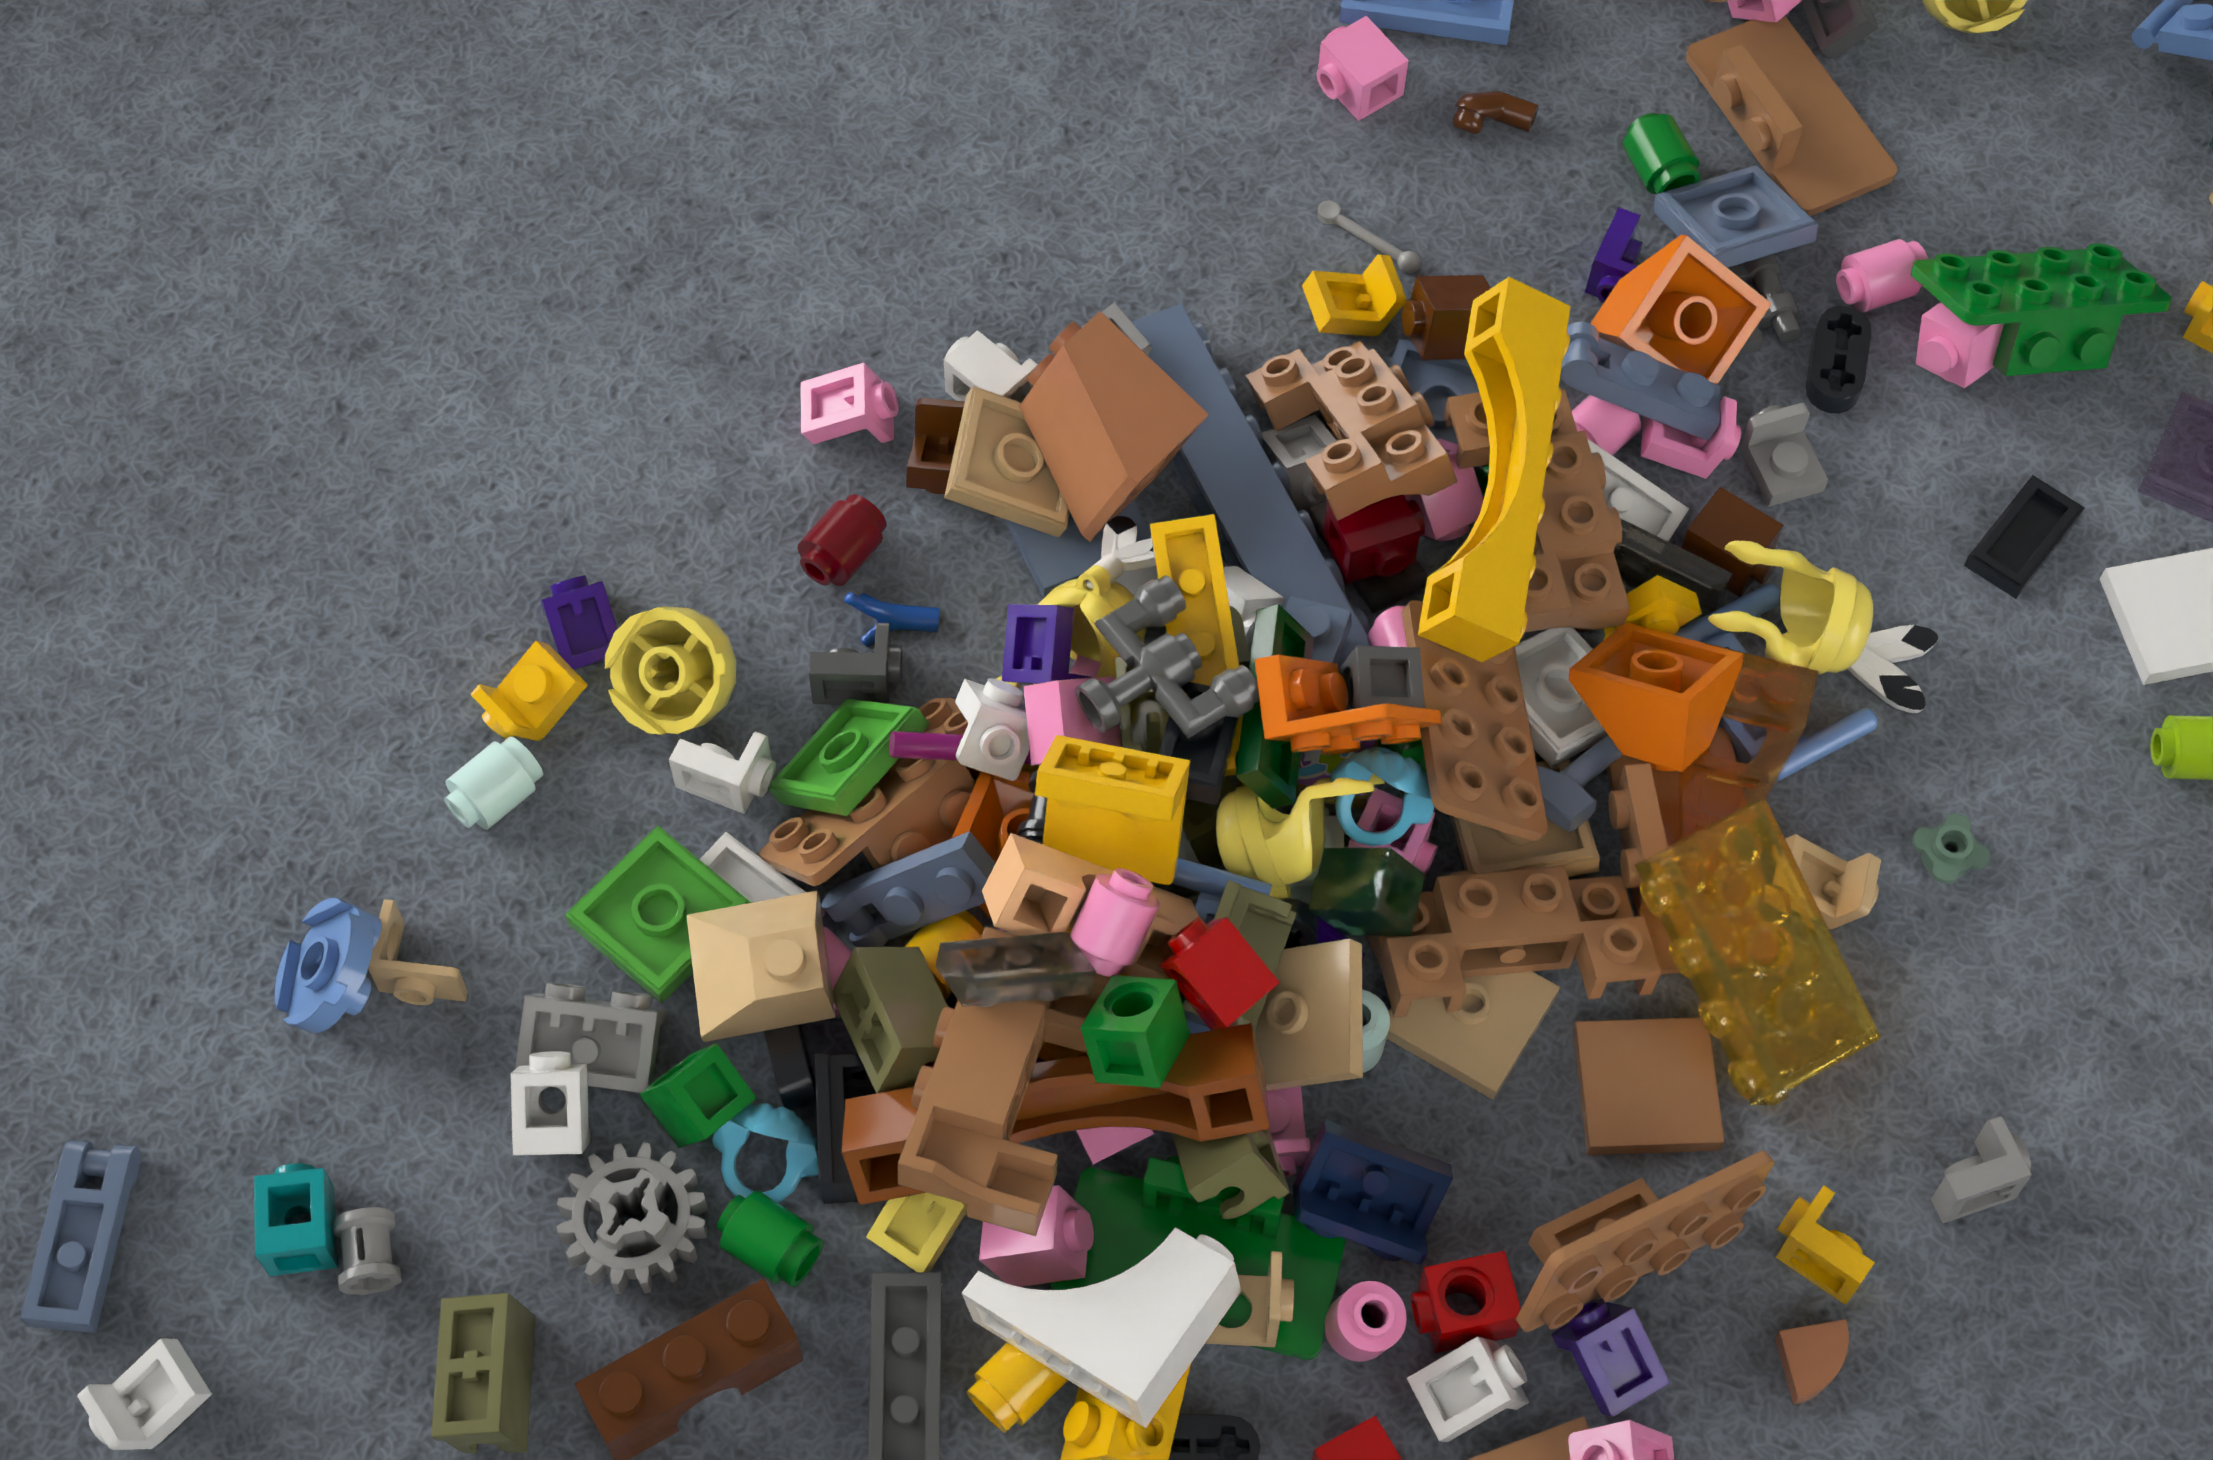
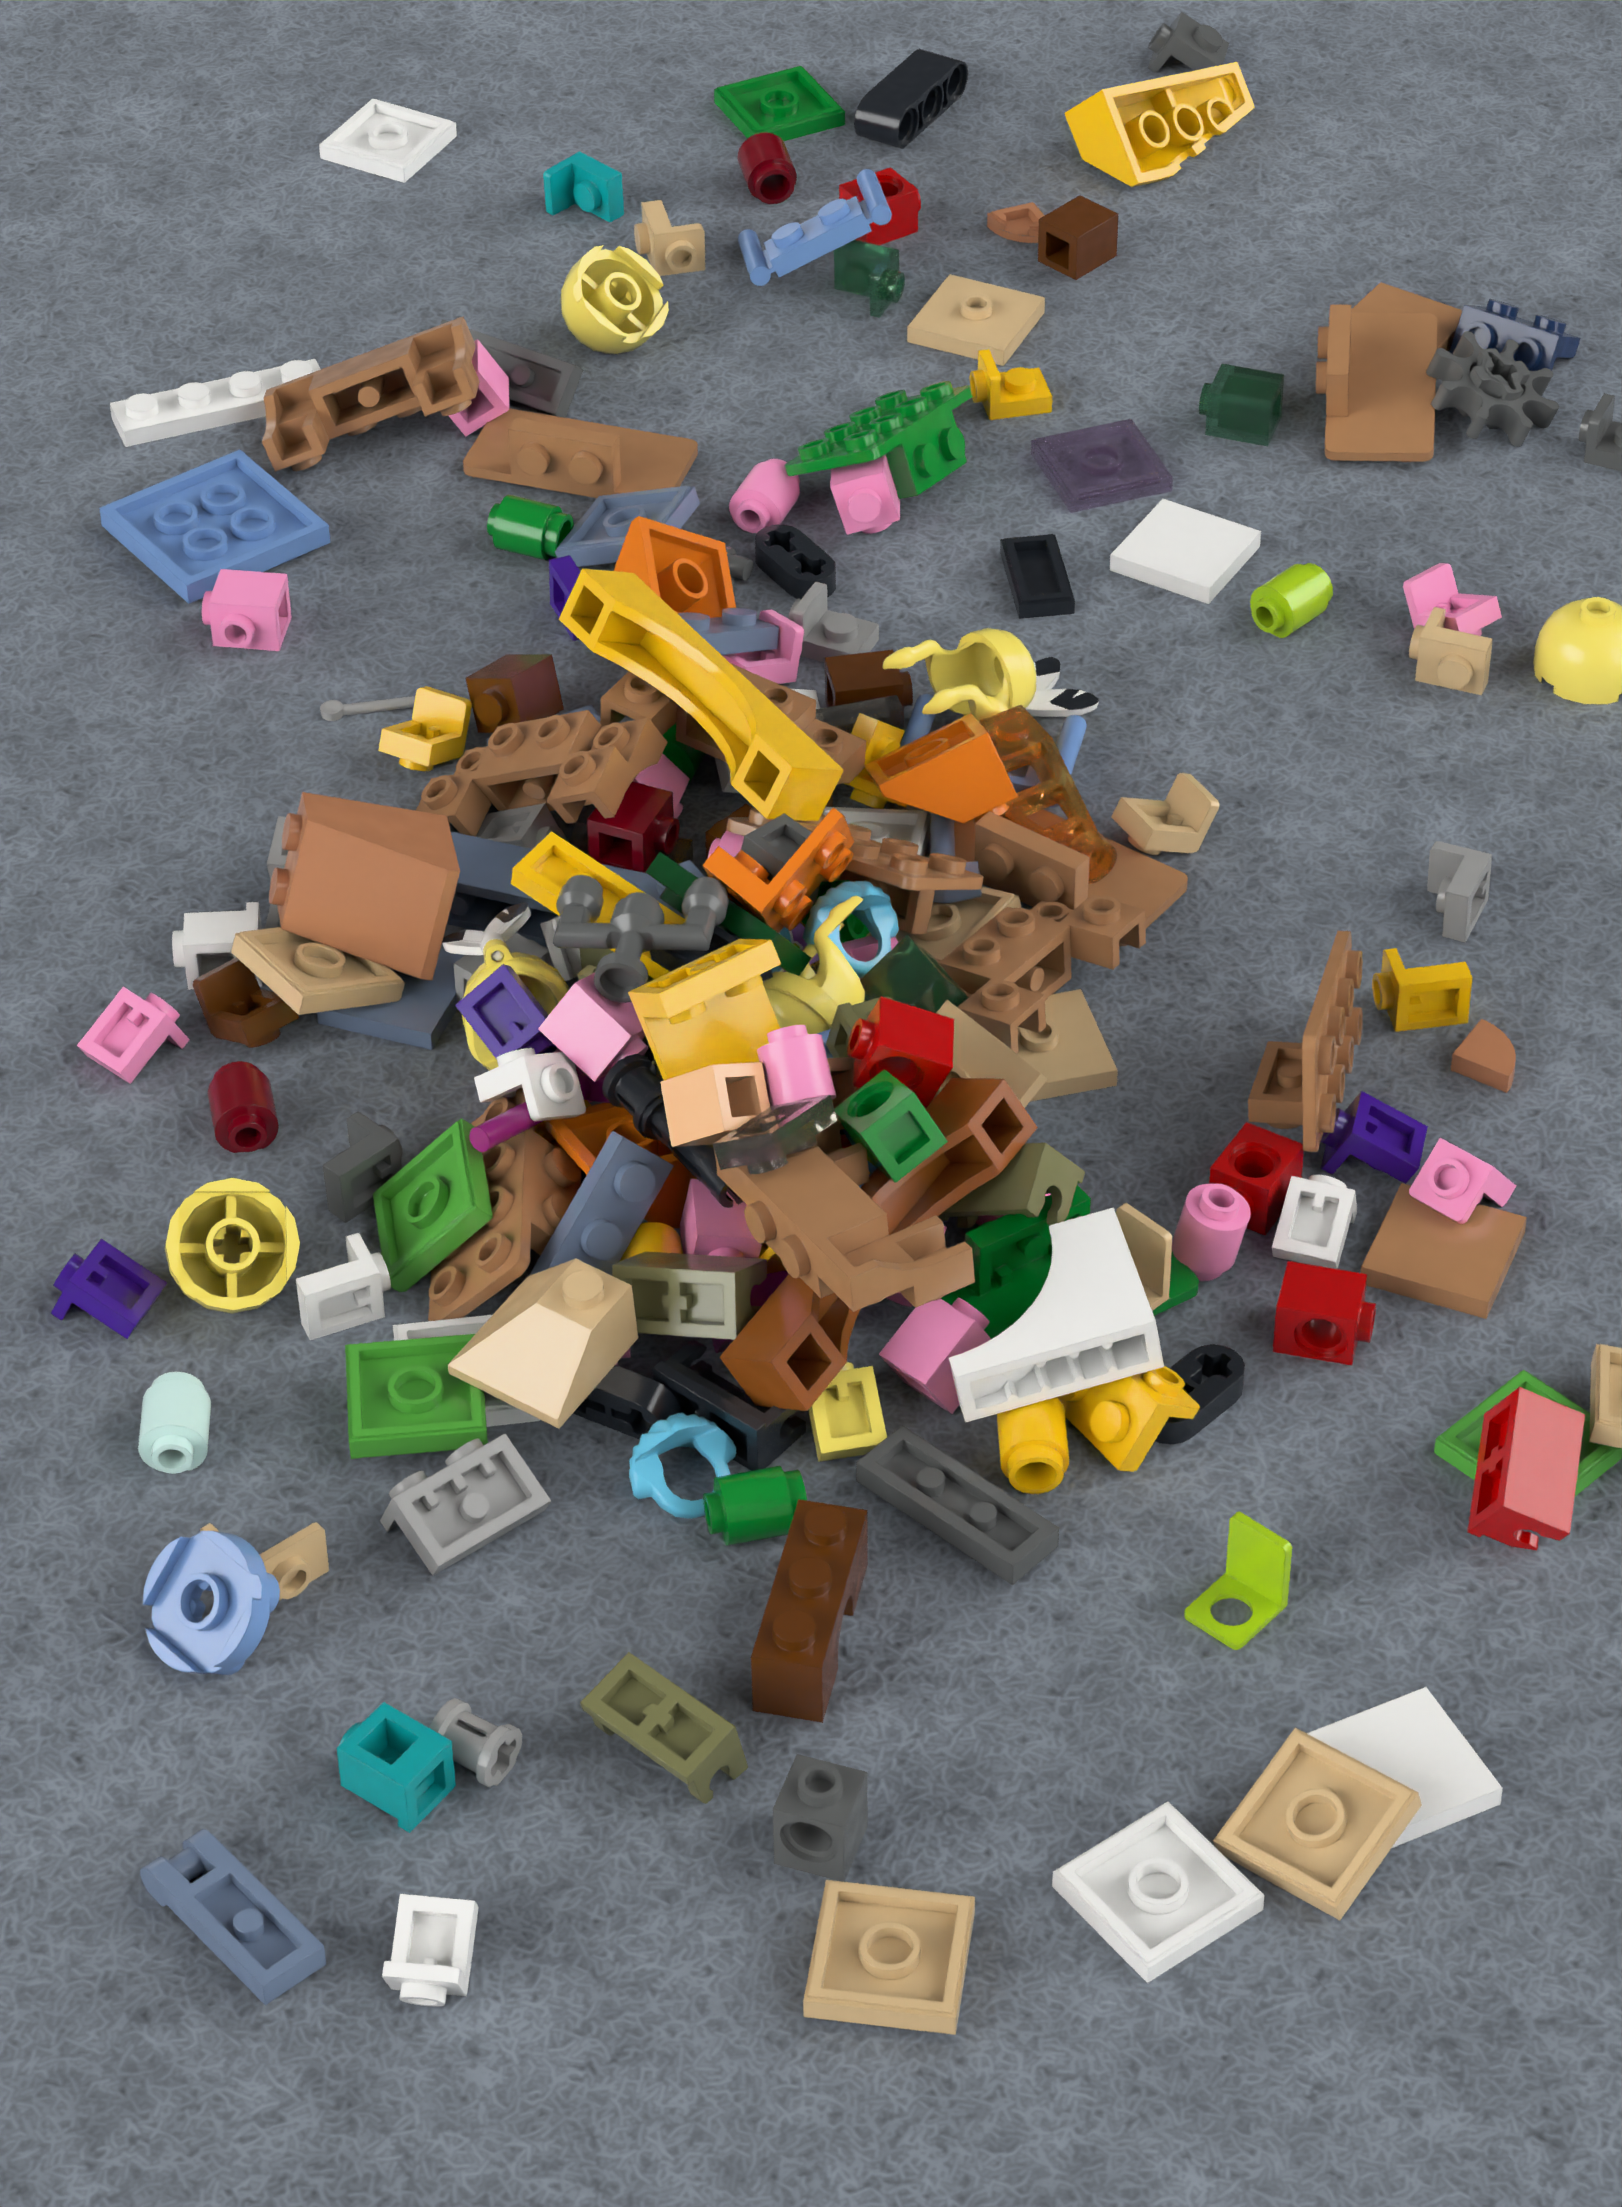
camera: 45 degrees left, 20 degrees down
(531, 694) = (129, 1351): yellow bracket -> none
(539, 1128) = (499, 1546): white brick -> none
(626, 1188) = (643, 1570): light grey gear -> none
(698, 1096) = (598, 1459): green brick -> none
(897, 615) = (335, 1128): blue bar -> none
(1370, 1192) = (1124, 1159): dark blue bracket -> none
(1495, 106) = (366, 581): reddish brown arm -> none
(1647, 1086) = (1202, 1002): medium nougat tile -> none
(1756, 953) = (1186, 864): clear yellow bracket -> none
(1940, 862) = (1214, 755): sand green plate -> none

